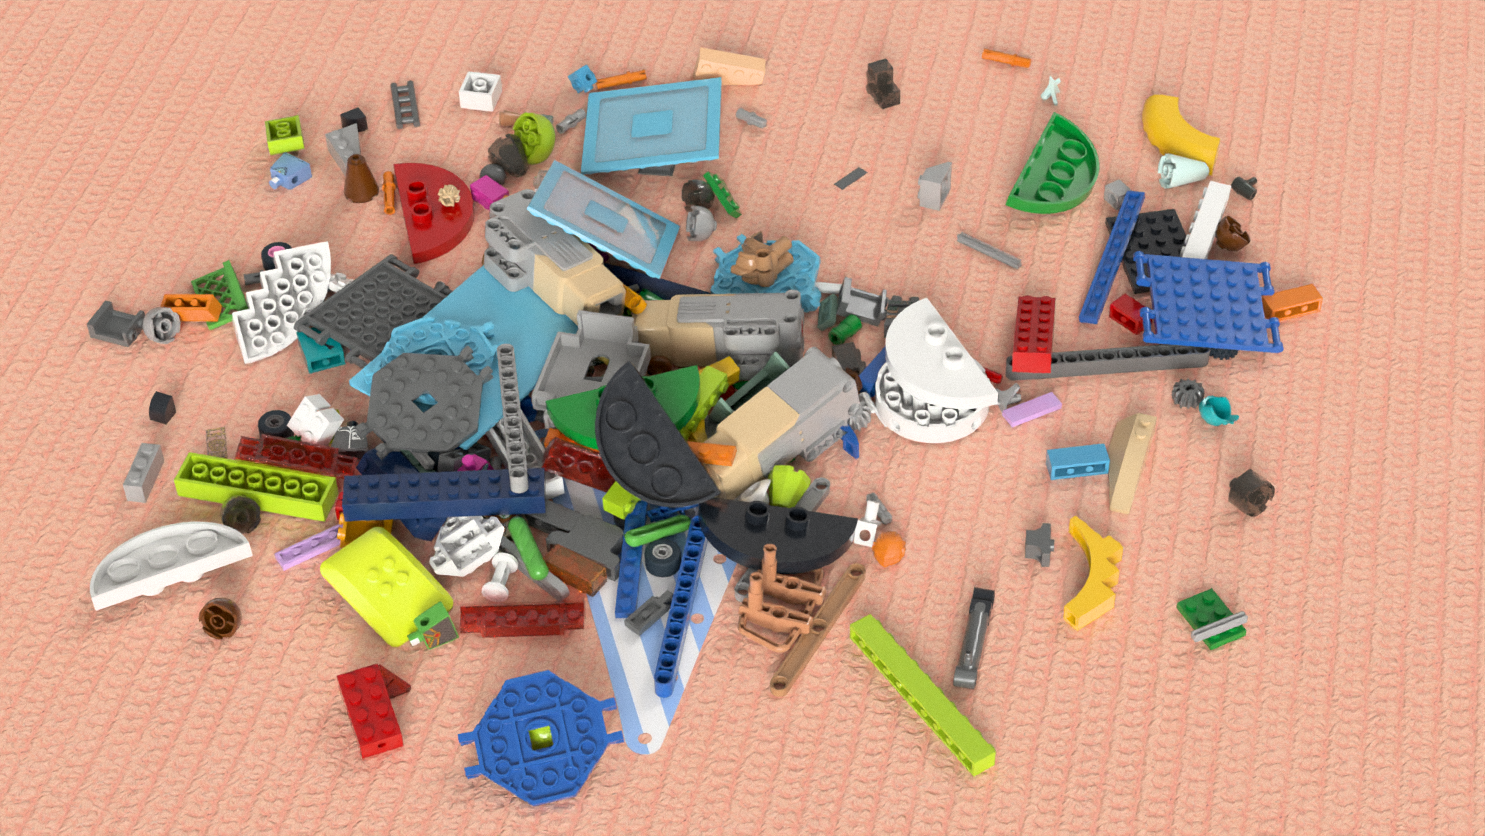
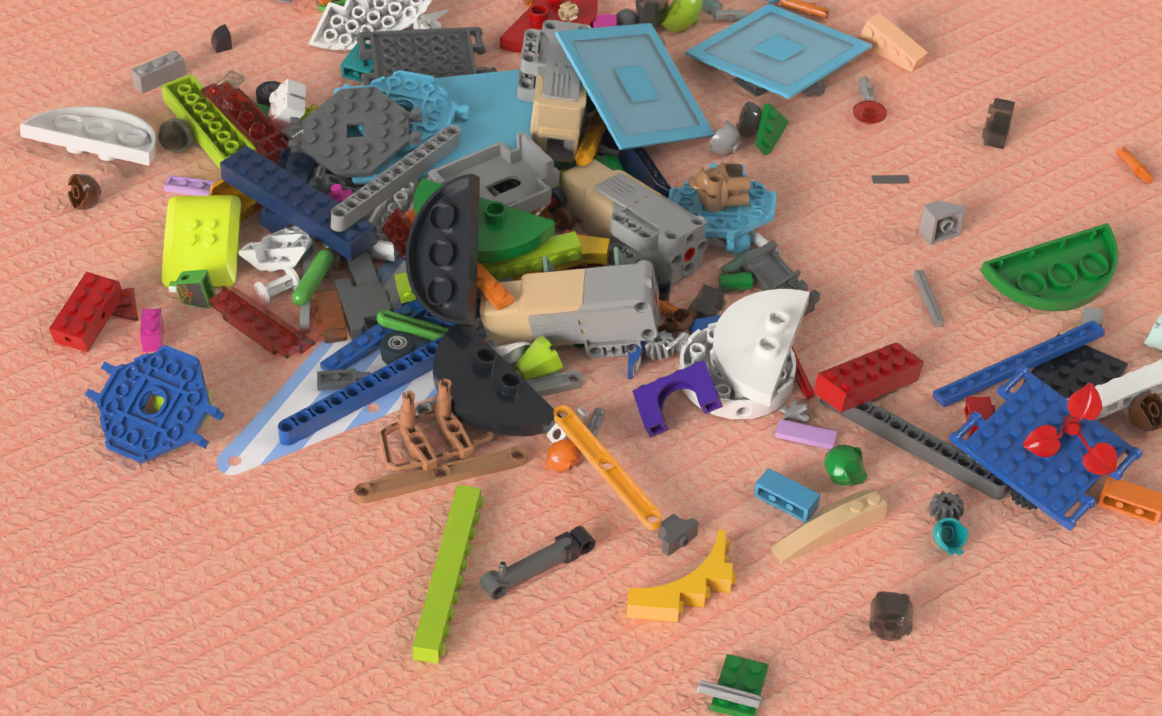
camera: 40 degrees right, 0 degrees up
(442, 686) = (151, 329): none -> dark pink brick
(776, 134) = (869, 112): none -> clear red dish
(929, 417) = (652, 395): none -> dark purple arch
(955, 531) = (614, 476): none -> light orange beam
(1051, 90) = (1140, 211): light aqua piece -> none
(1090, 411) = (845, 465): none -> green helmet
(1230, 248) = (1082, 403): none -> red plant

